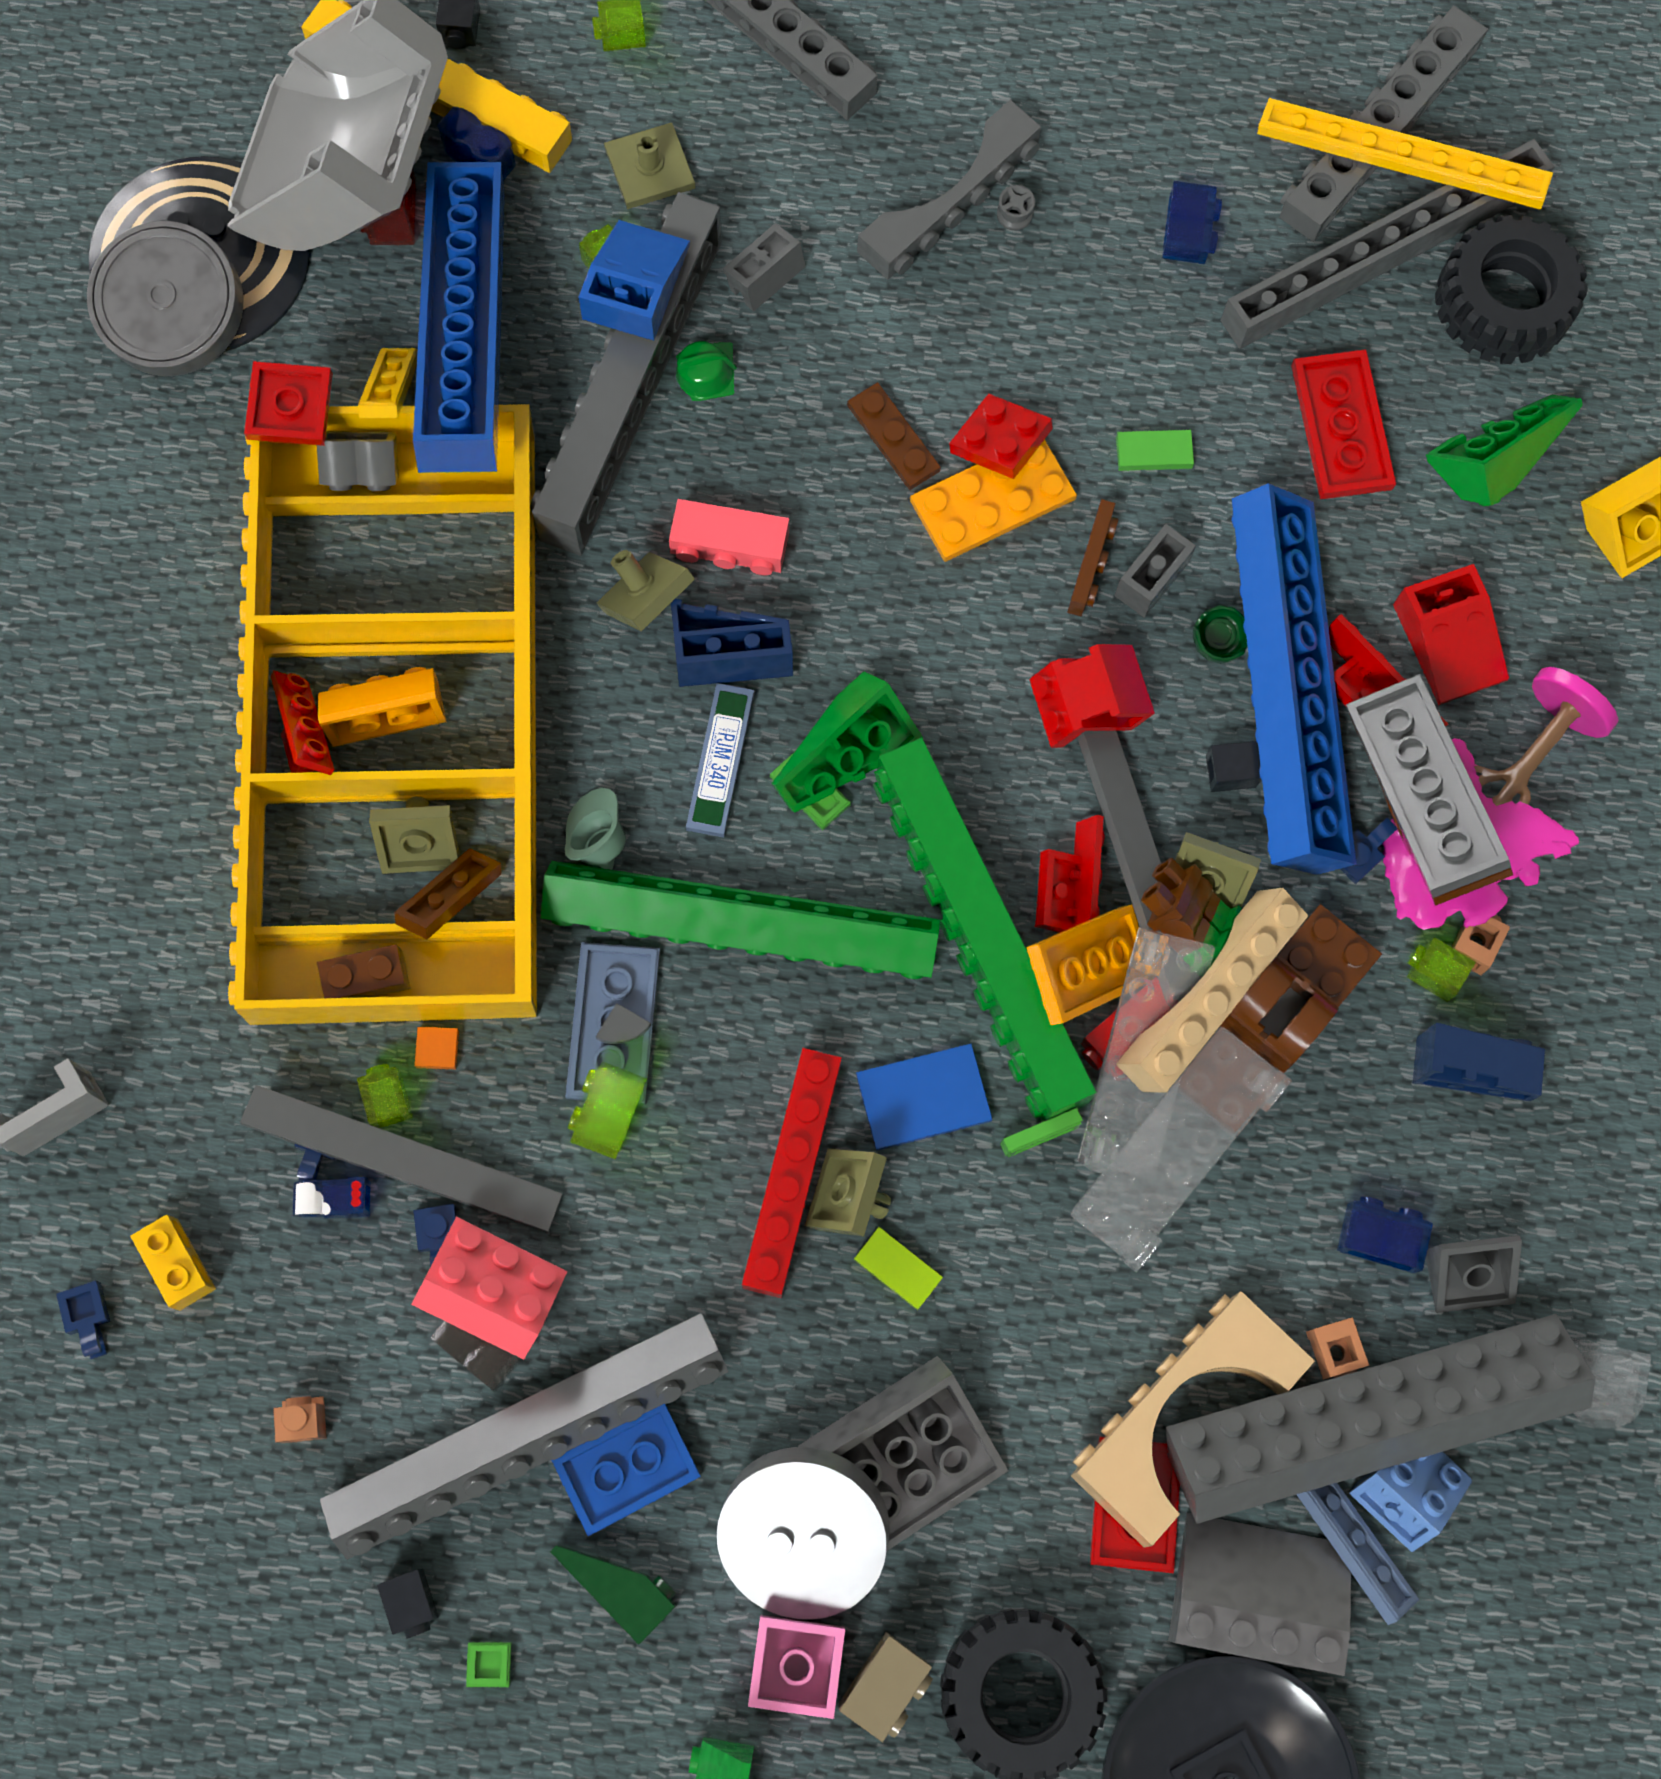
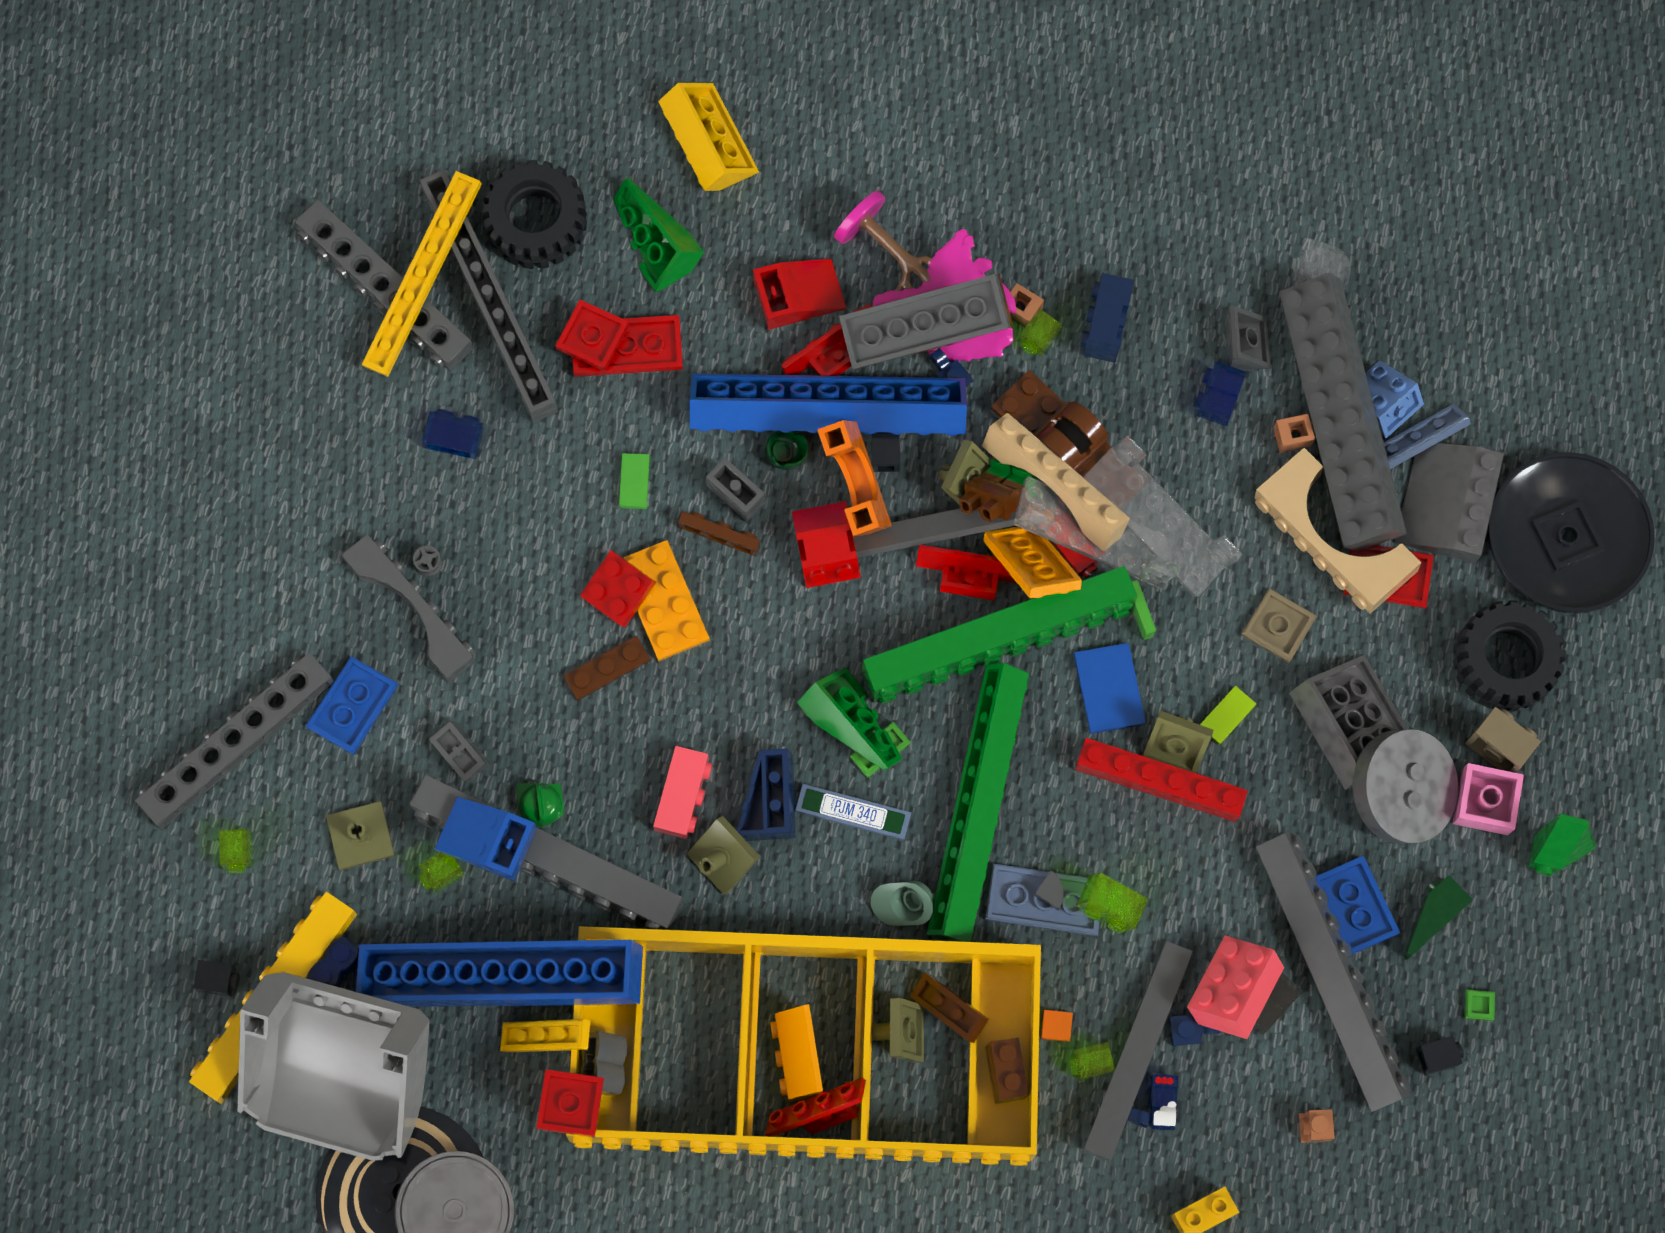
camera: 85 degrees left, 0 degrees up
(818, 141) = (352, 705): none -> blue tile
(1040, 1339) = (1279, 625): none -> dark tan tile
(1228, 700) = (847, 446): none -> orange arch
(1349, 371) = (592, 335): none -> red plate

